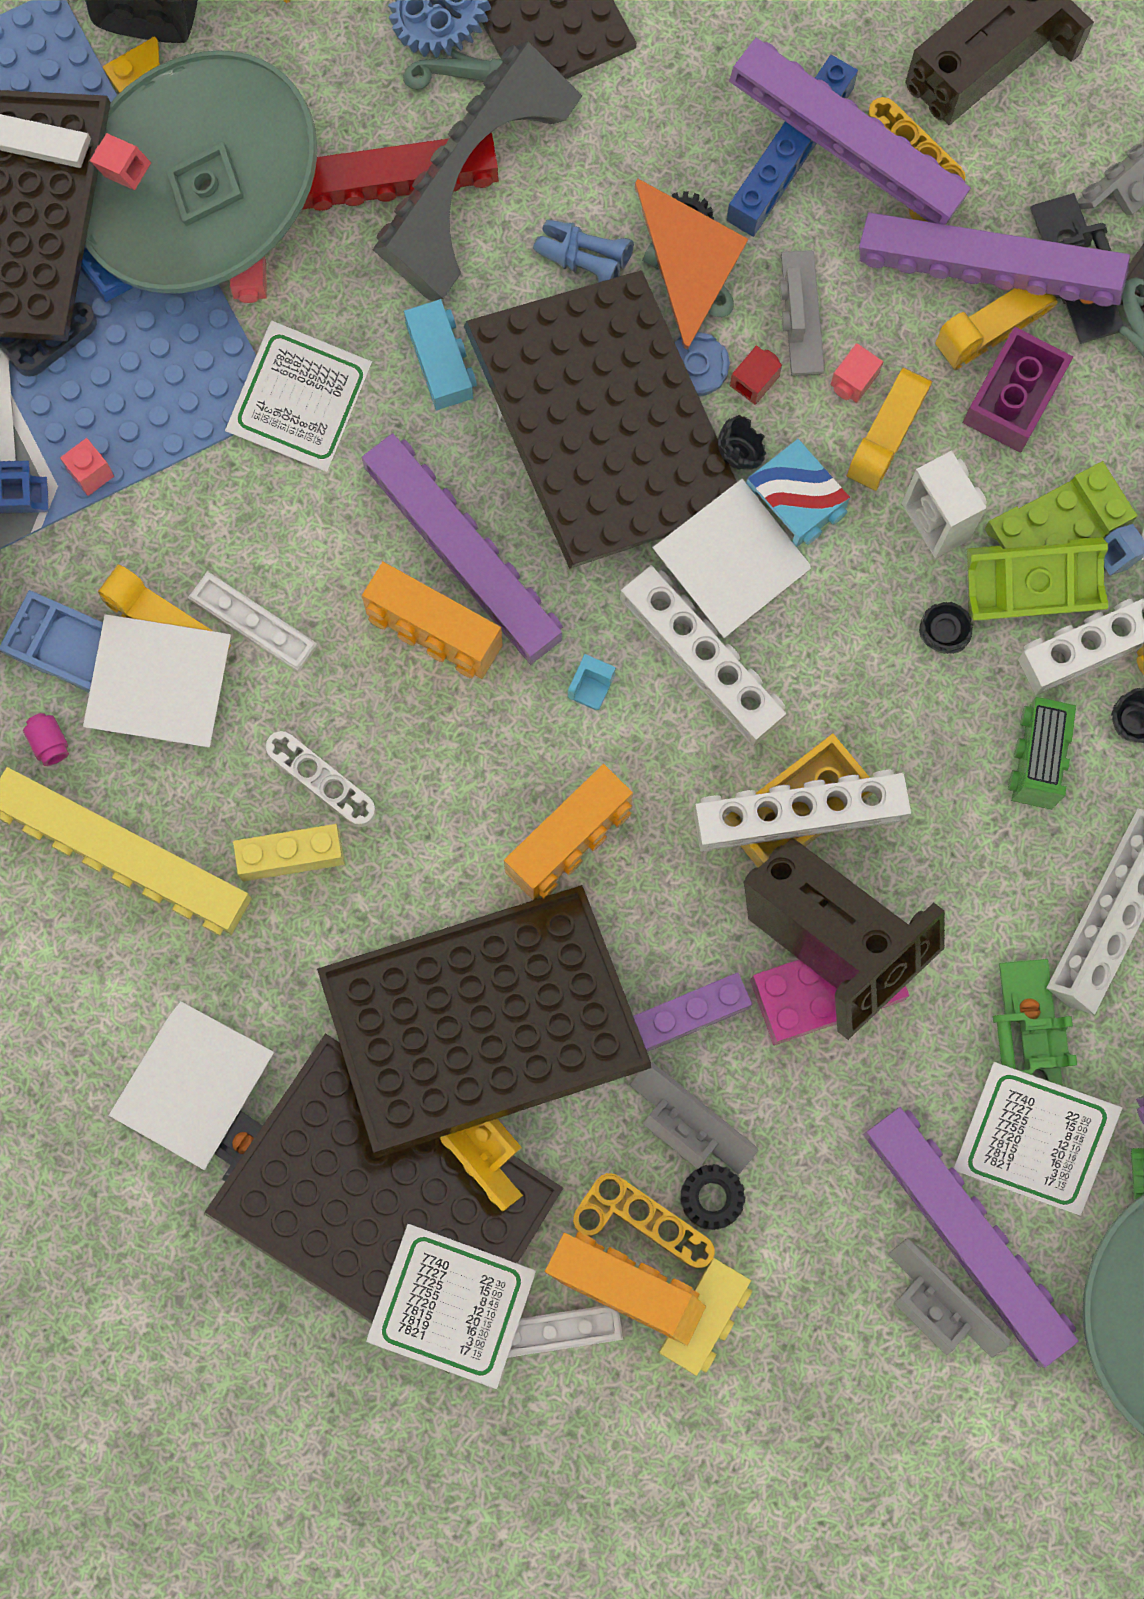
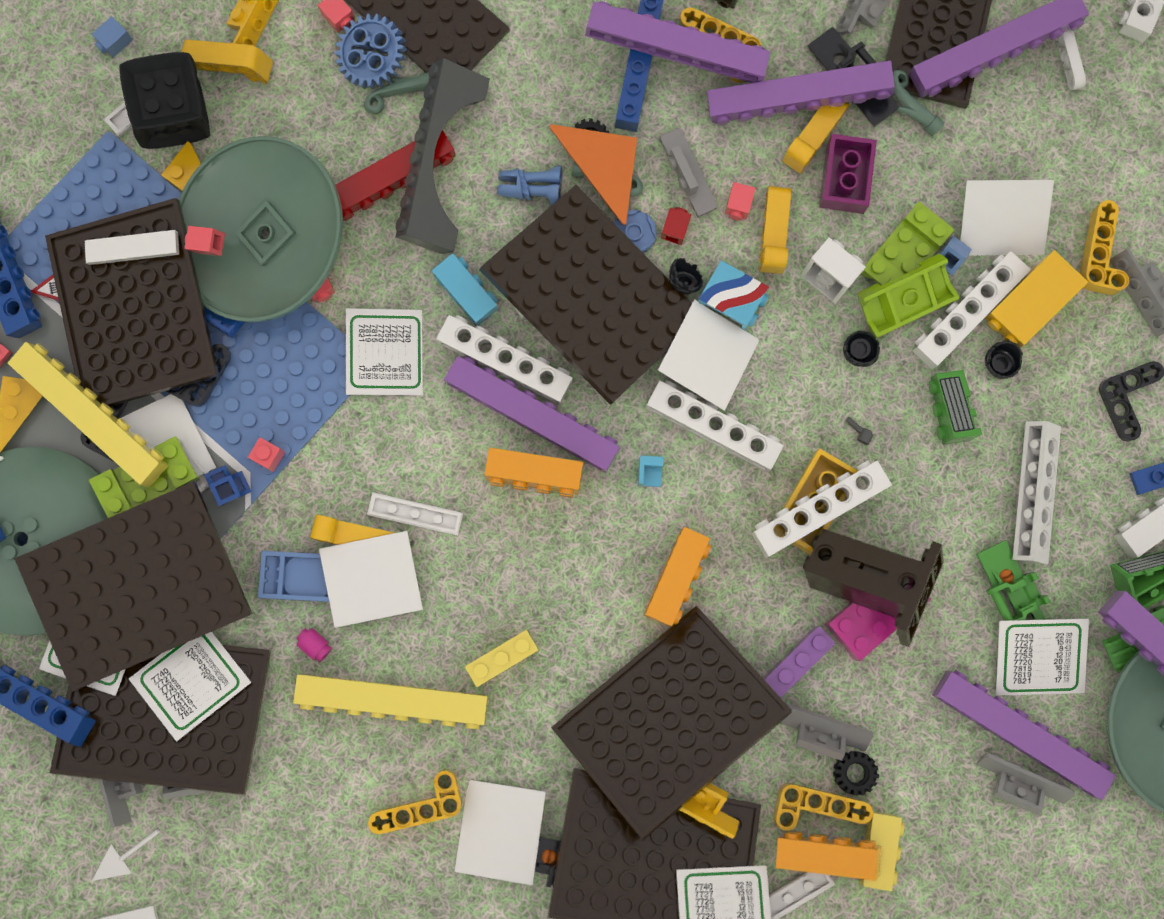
camera: 25 degrees left, 5 degrees up
(90, 1008) = (414, 808): none -> yellow beam
(318, 782) = (502, 598): white beam -> none
(503, 529) = (457, 325): none -> white brick
(908, 746) = (865, 434): none -> dark grey hand

